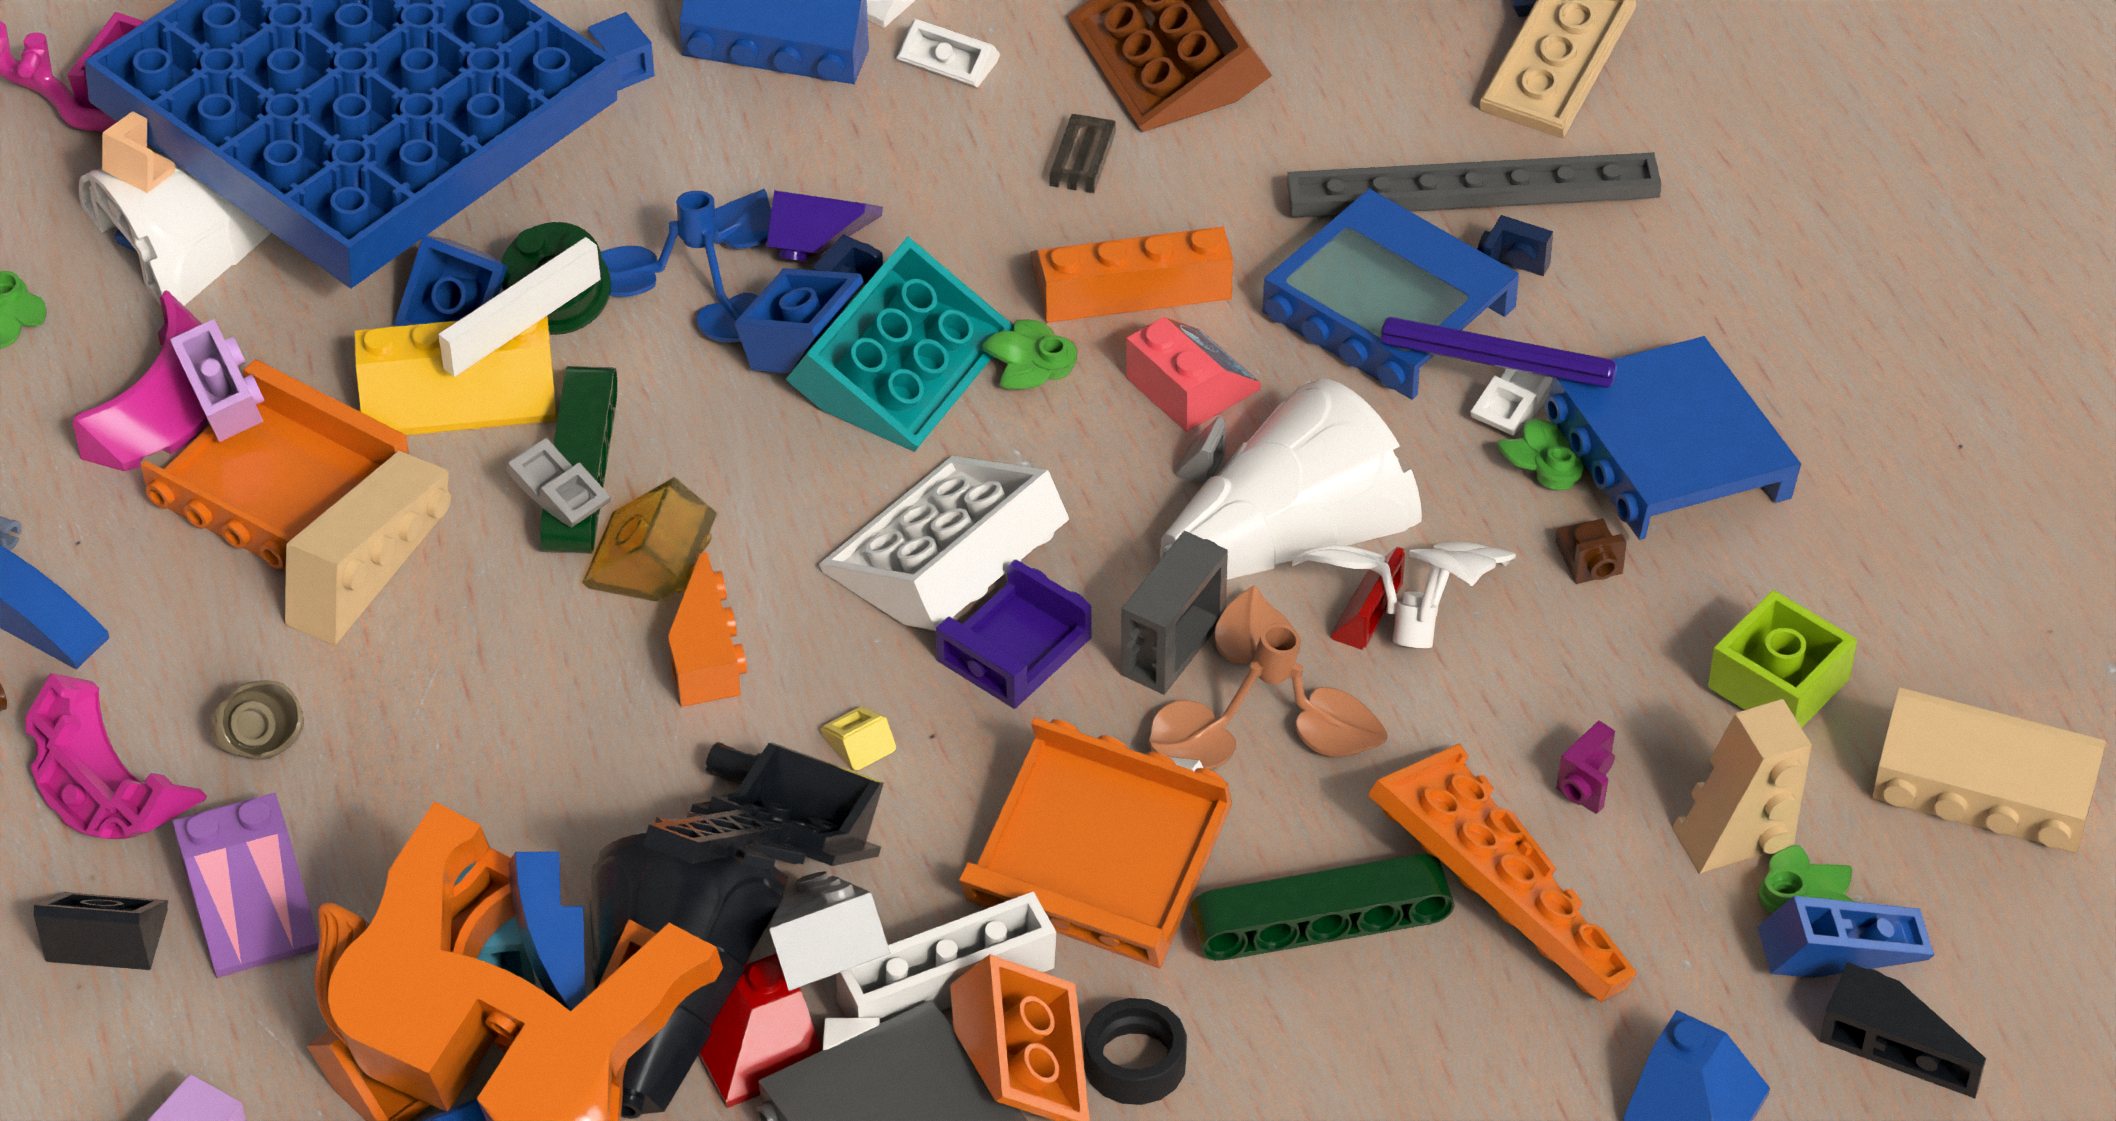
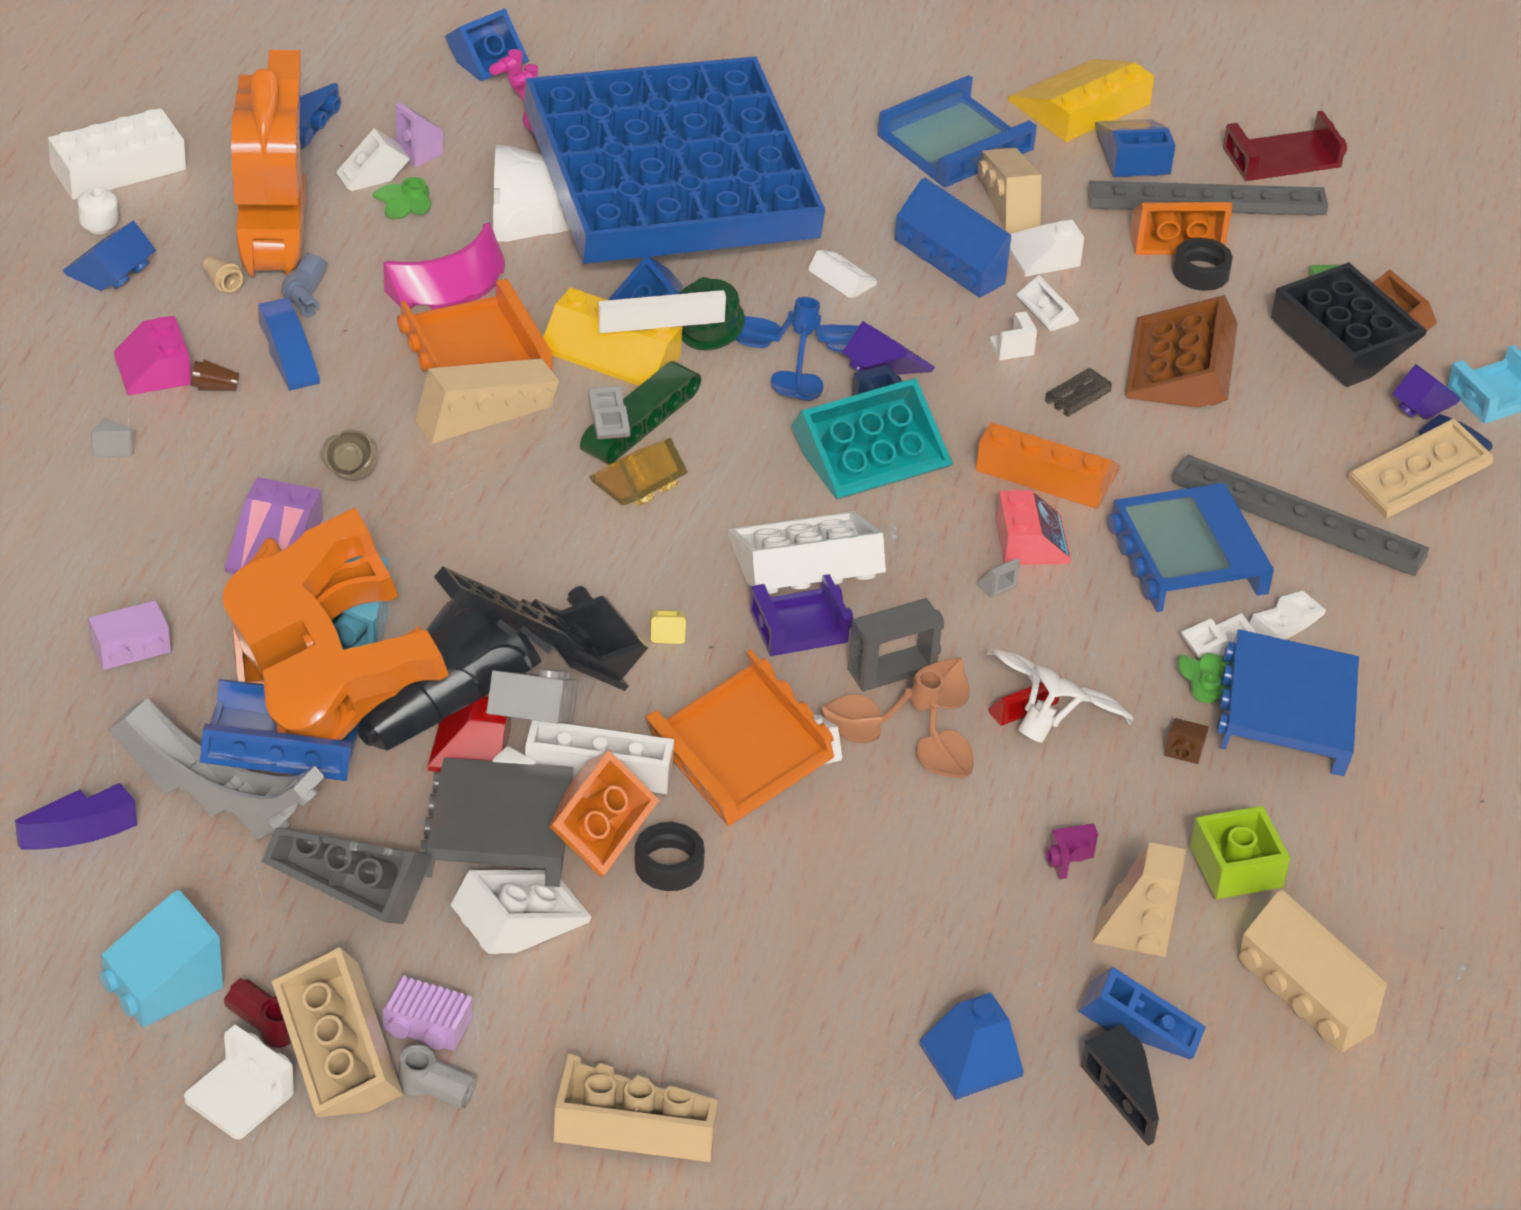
camera: 30 degrees right, 5 degrees down
(83, 773) = (246, 434): dark pink windscreen -> none
(100, 929) = (183, 515): black slope -> none
(127, 154) = (519, 141): light nougat panel -> none
(215, 377) = (474, 276): lavender brick -> none
(548, 931) = (372, 607): blue slope -> none
(627, 44) = (855, 219): blue panel -> none
(660, 136) = (841, 273): none -> white slope
(700, 640) = (620, 533): orange slope -> none
(793, 316) = (817, 388): blue slope -> none
(957, 121) = (1017, 342): none -> white panel
(1031, 354) = (946, 480): bright green plate -> none
(1303, 482) = (1041, 617): white cone -> none
(1321, 907) = (844, 839): dark green beam -> none
(1499, 352) = (1213, 601): dark purple axle -> none
(1501, 862) = (968, 864): orange wing -> none
(1518, 245) = (1293, 557): dark blue bracket -> none
(1570, 319) = (1289, 617): none -> white slope
(1793, 875) = (1148, 971): bright green plate -> none

